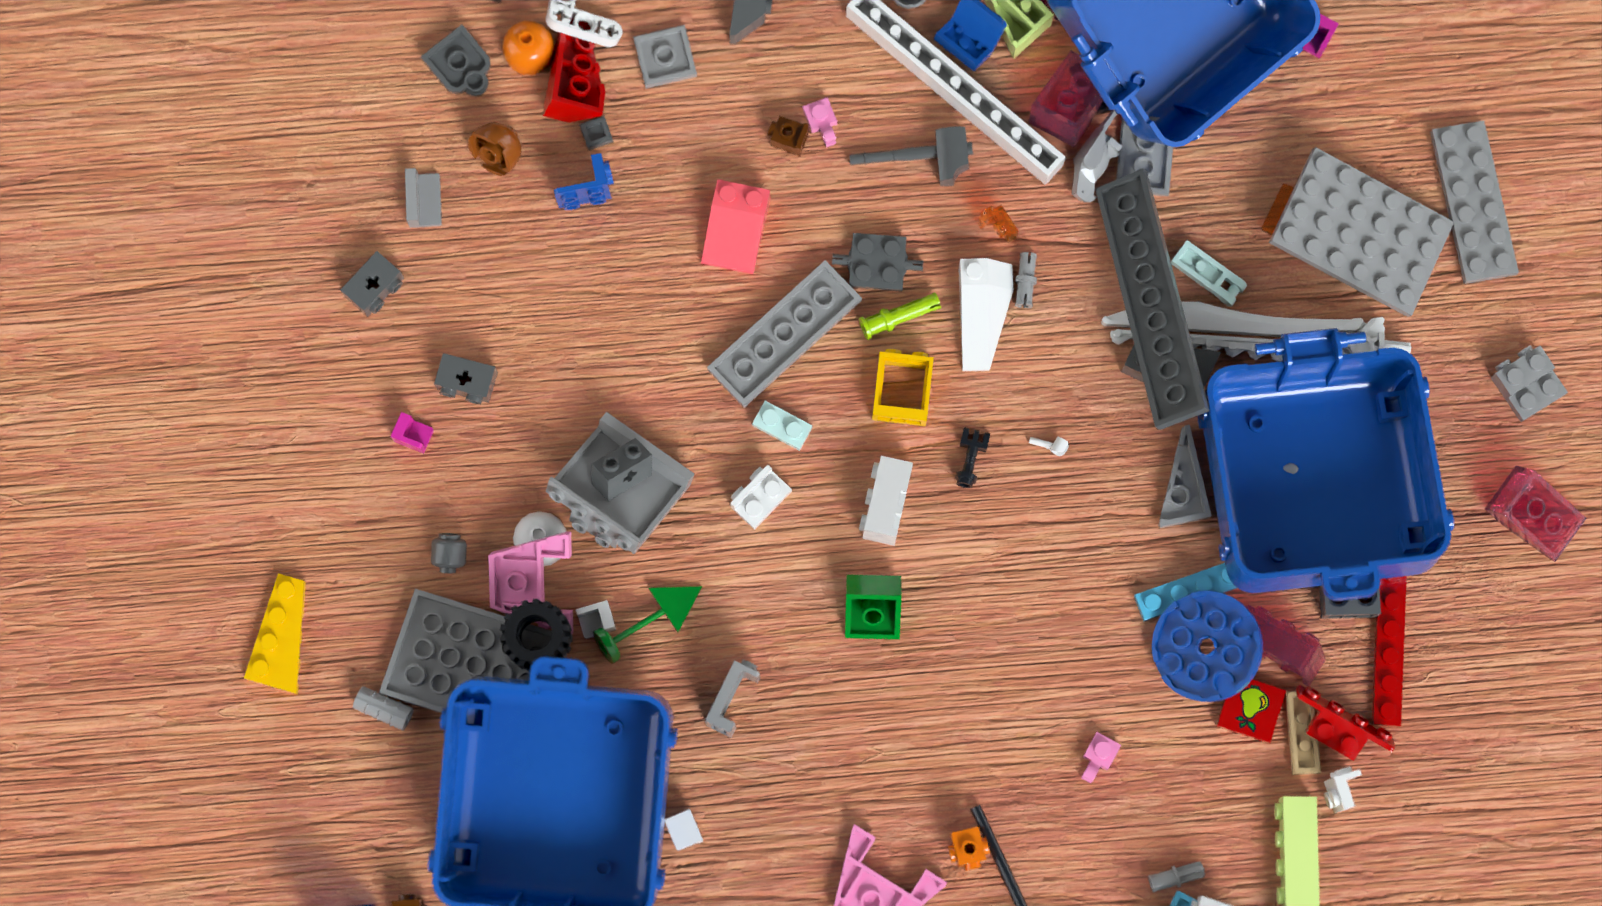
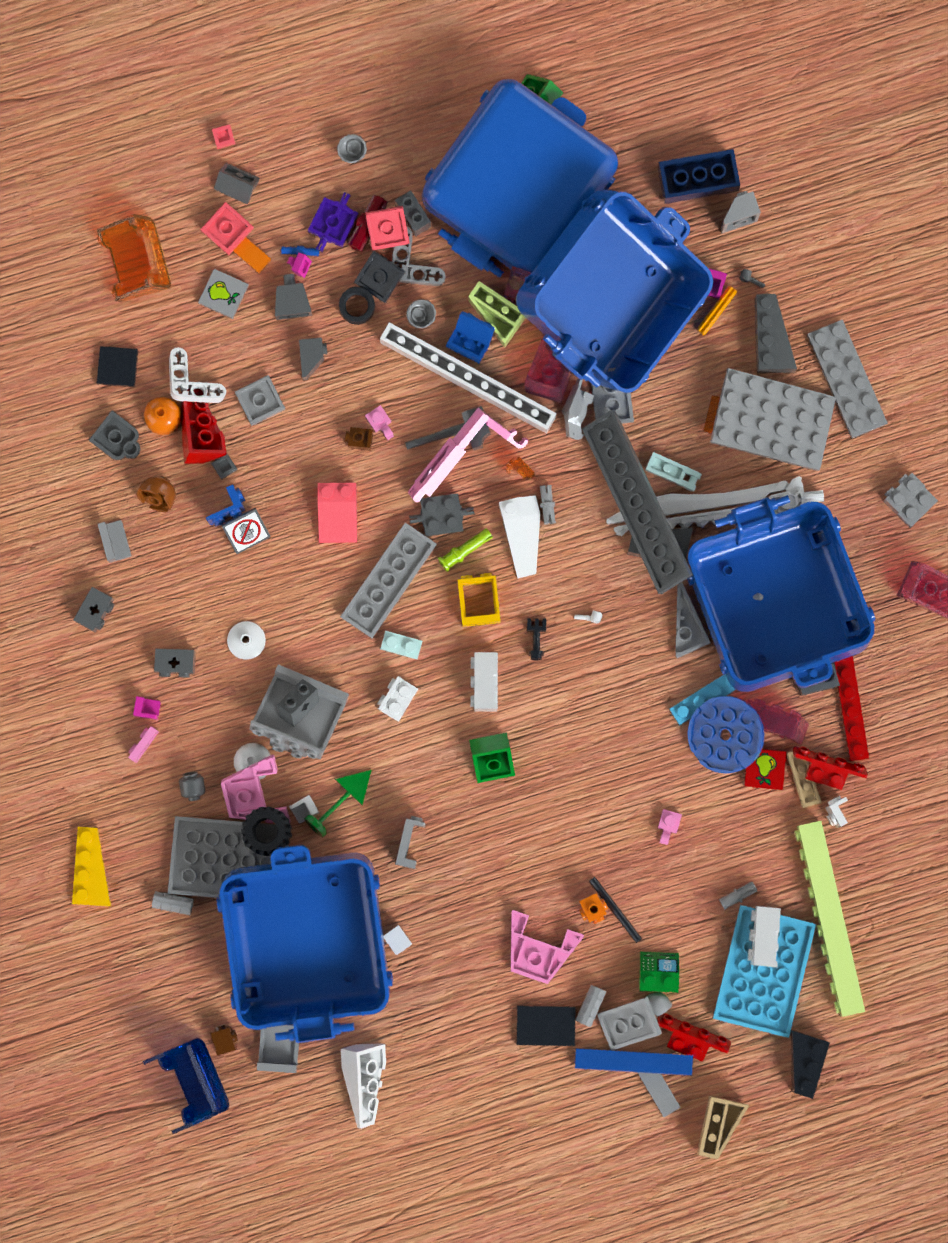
camera: 10 degrees left, 5 degrees up
(386, 487) = (138, 750): none -> bright pink plate
(572, 385) = (253, 647): none -> white dish
(604, 223) = (245, 530): none -> piece
(915, 176) = (454, 450): none -> bright pink hinge
(1313, 72) = (716, 311): none -> light orange axle
(1363, 35) = (745, 276): none -> dark grey hand
(1381, 130) = (772, 341): none -> dark grey wedge

